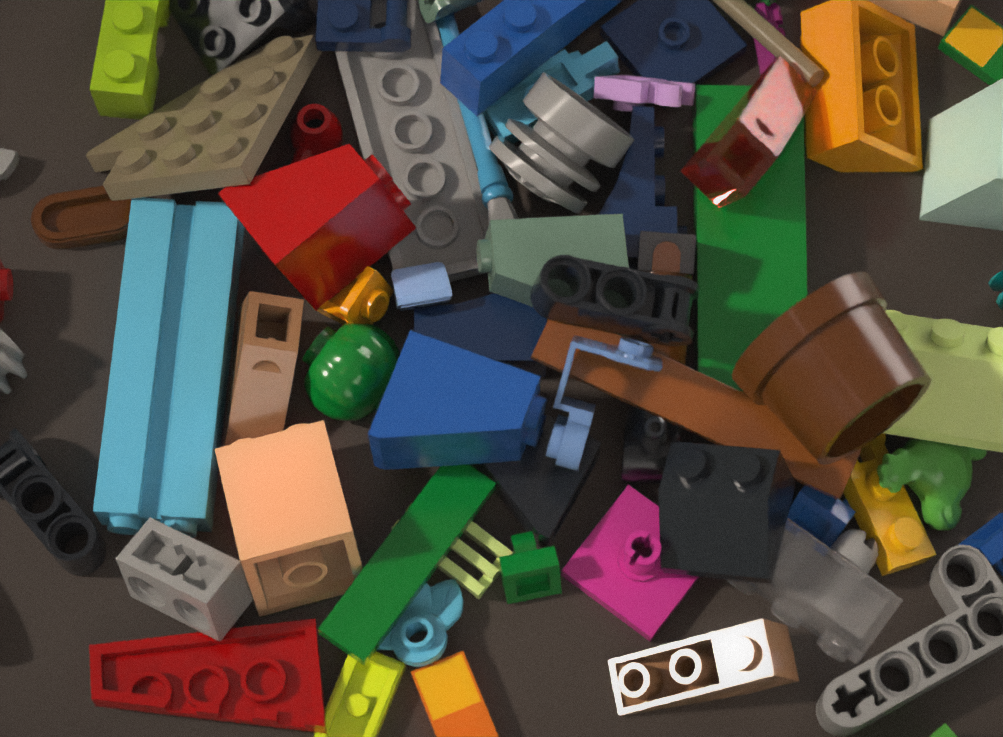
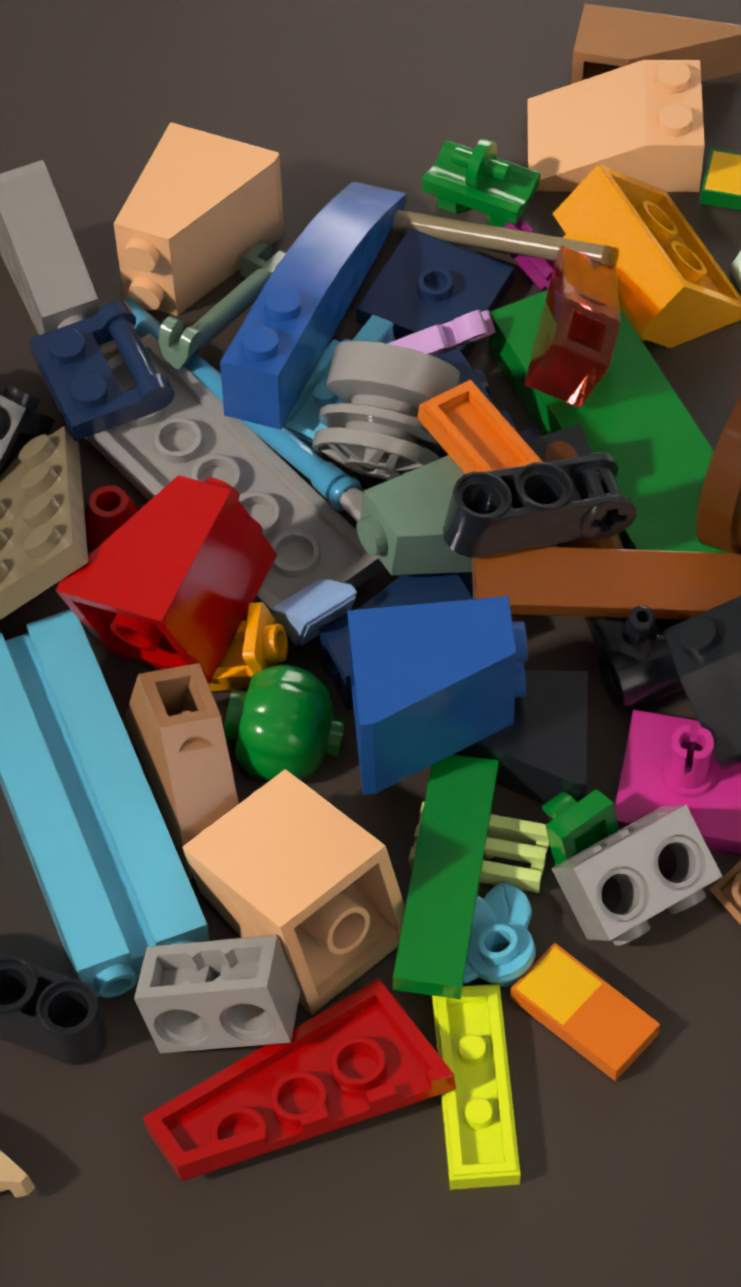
camera: 25 degrees left, 15 degrees down
(549, 613) = (633, 862): none -> light grey brick
(571, 432) = (565, 652): medium blue piece -> none
(606, 213) = (474, 431): none -> orange tile

